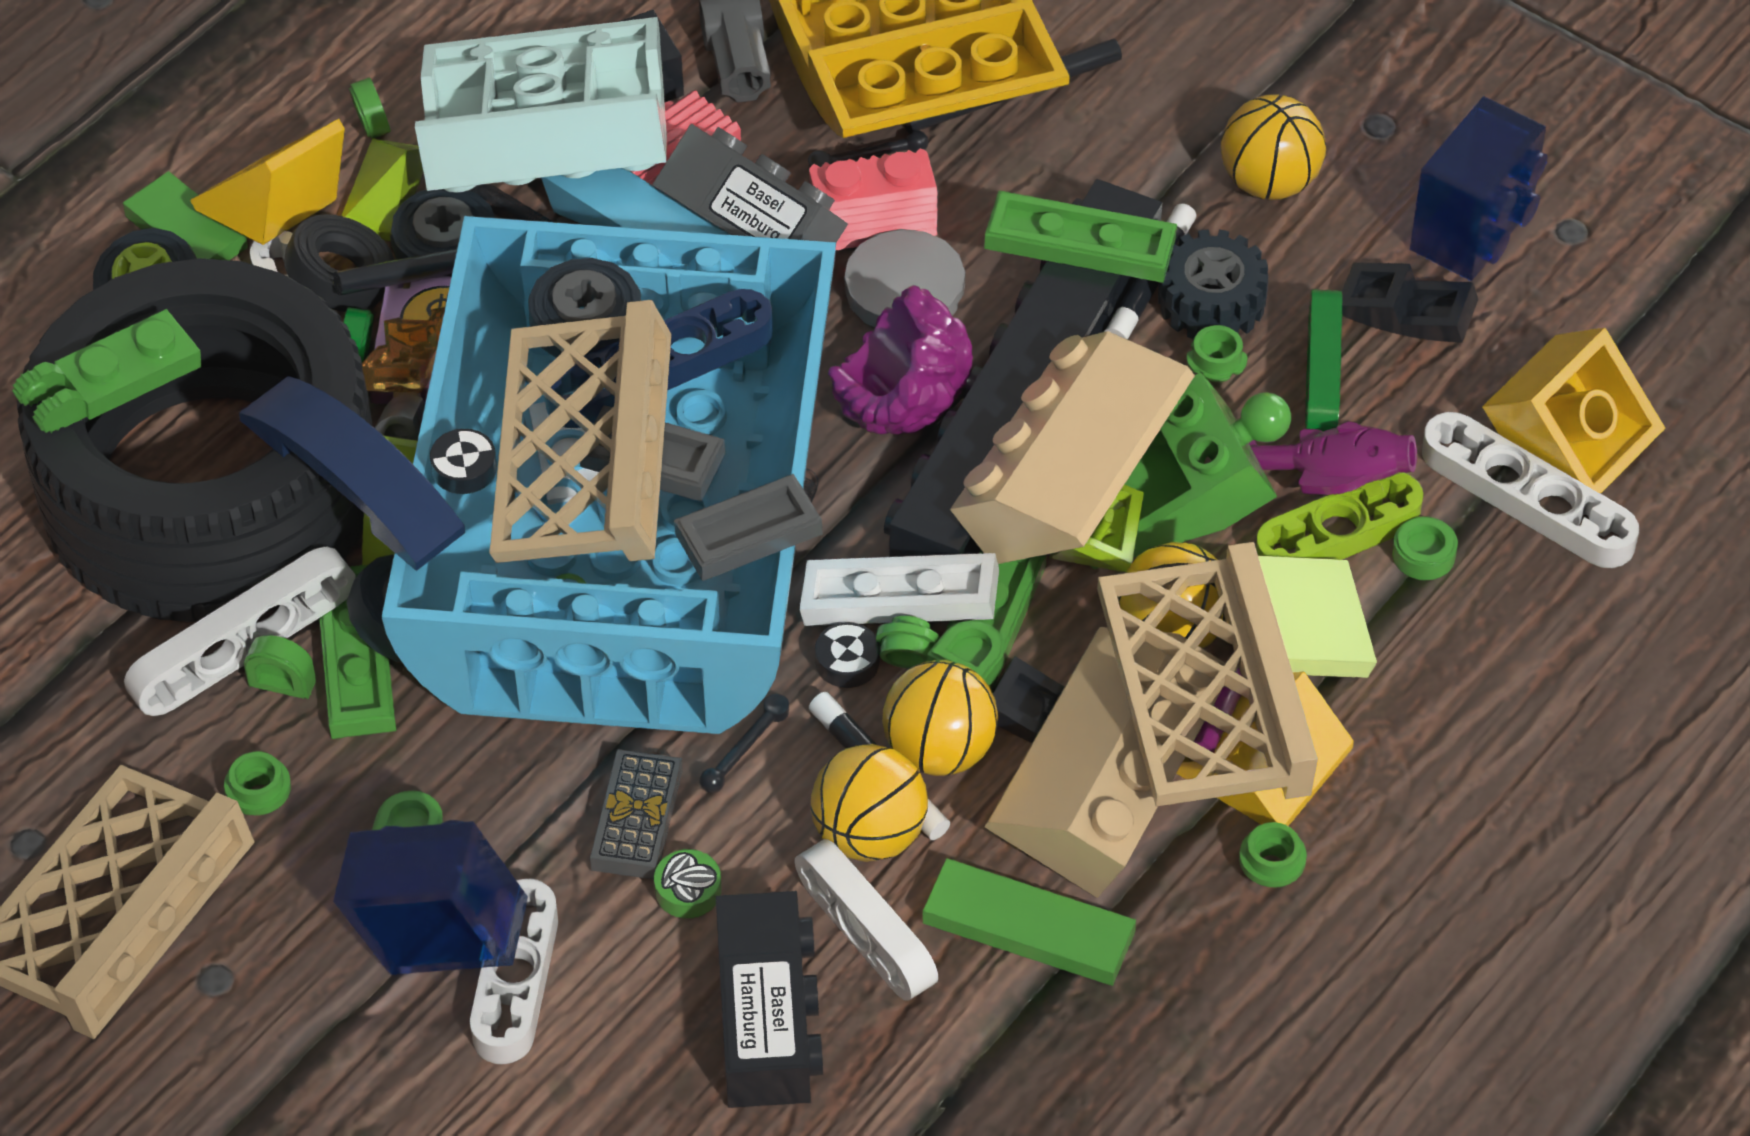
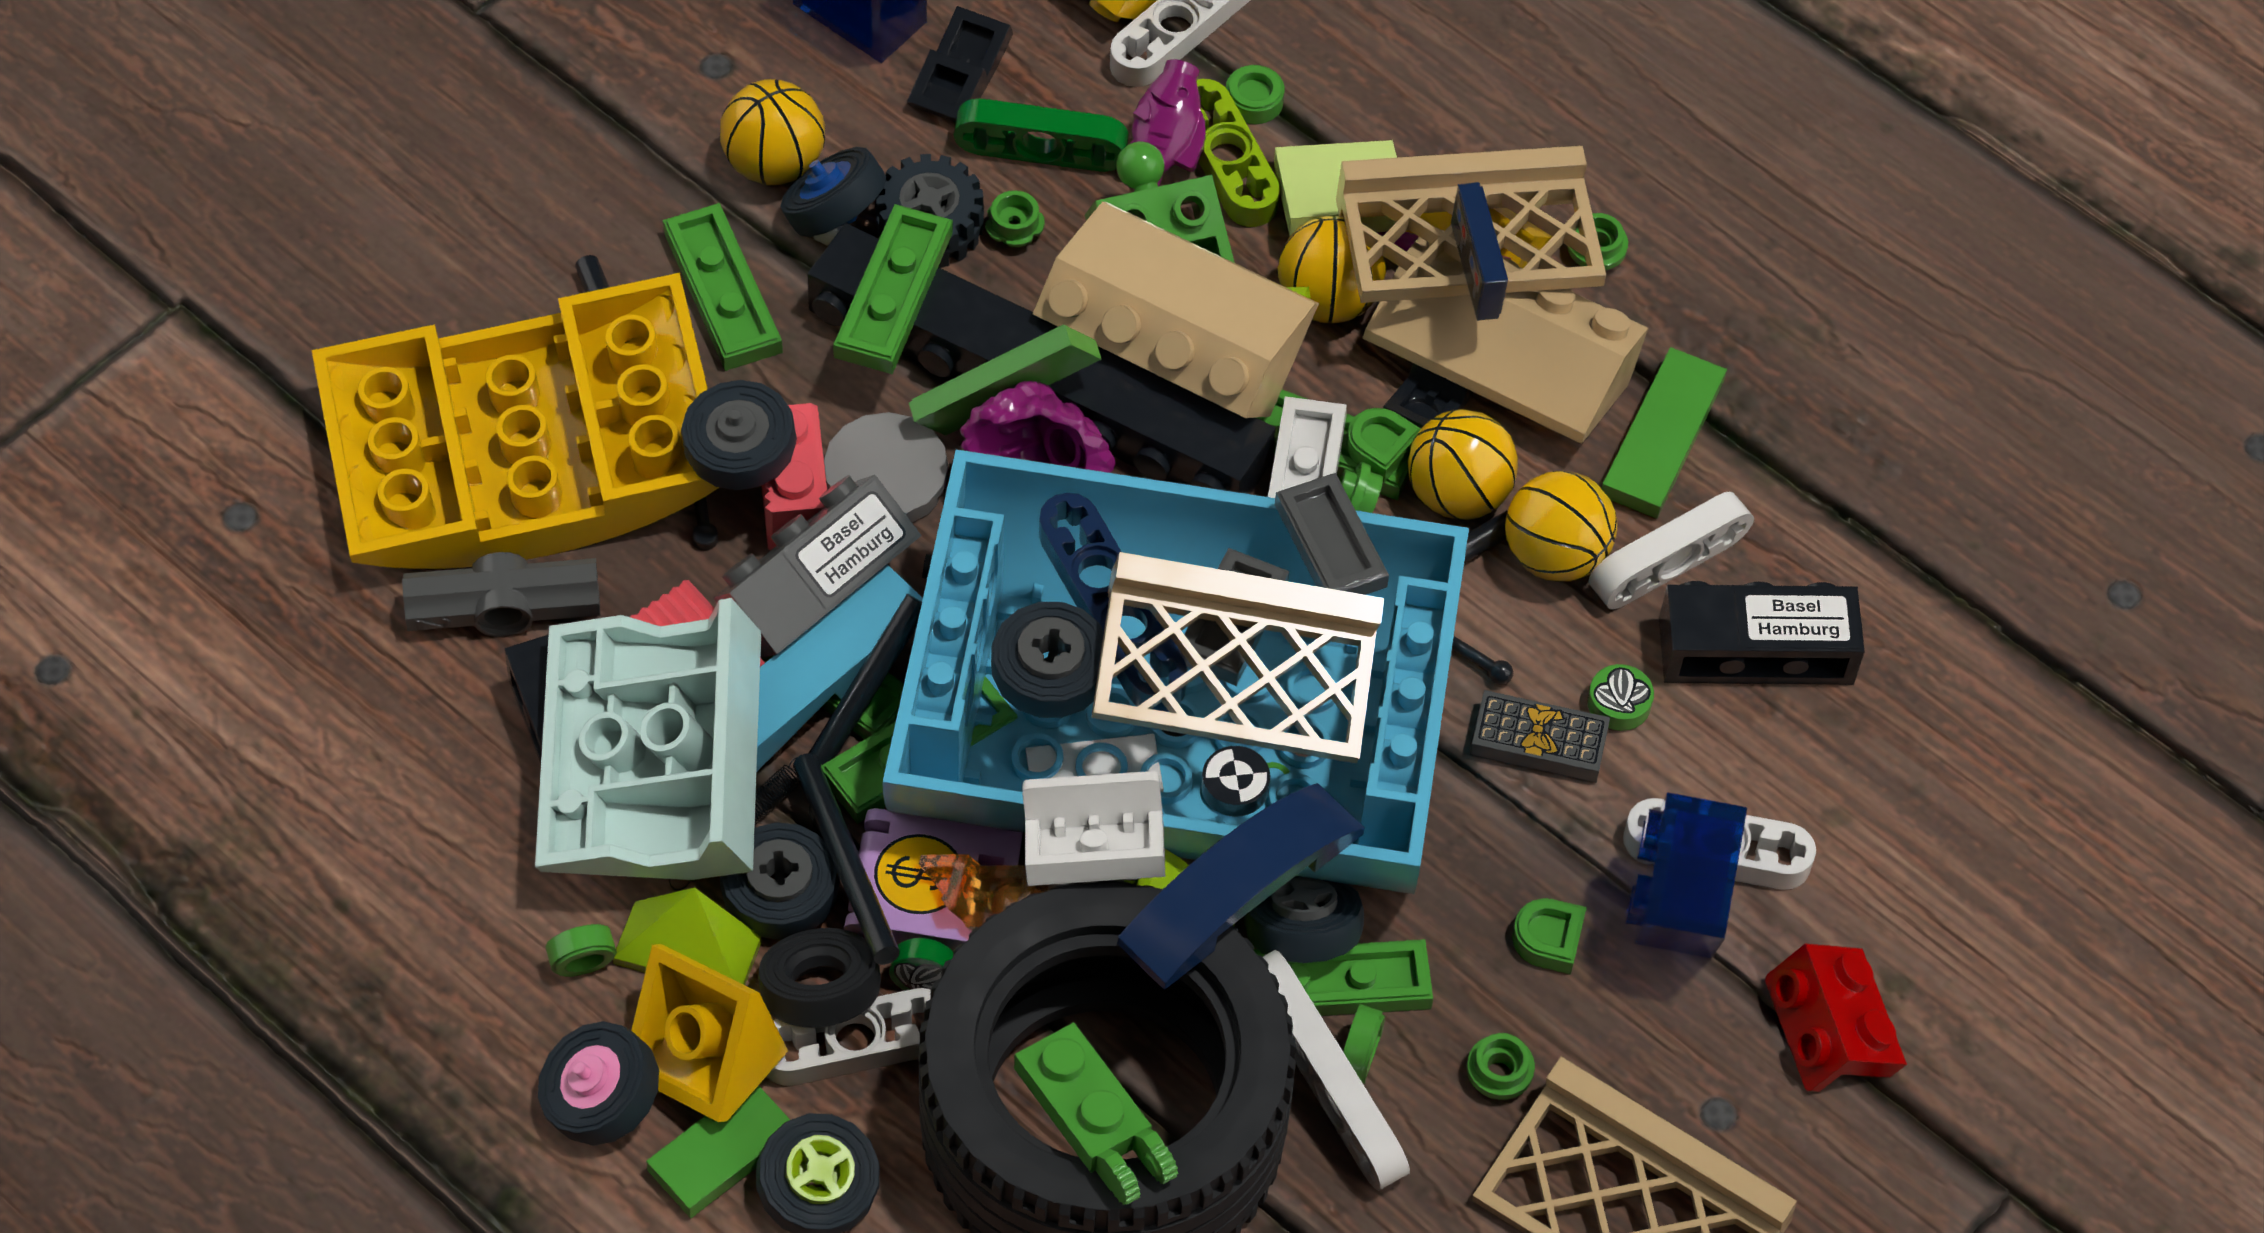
camera: 90 degrees left, 5 degrees up
(236, 127) = (598, 1083): none -> black wheel
(310, 1070) = (1833, 1015): none -> red bracket
(397, 354) = (1093, 828): none -> white bracket
(875, 122) = (738, 435): none -> black wheel
(979, 320) = (1041, 359): none -> bright green tile
(1105, 147) = (722, 287): none -> bright green tile
(1144, 656) = (1479, 251): none -> dark blue tile
(1210, 199) = (833, 191): none -> black wheel

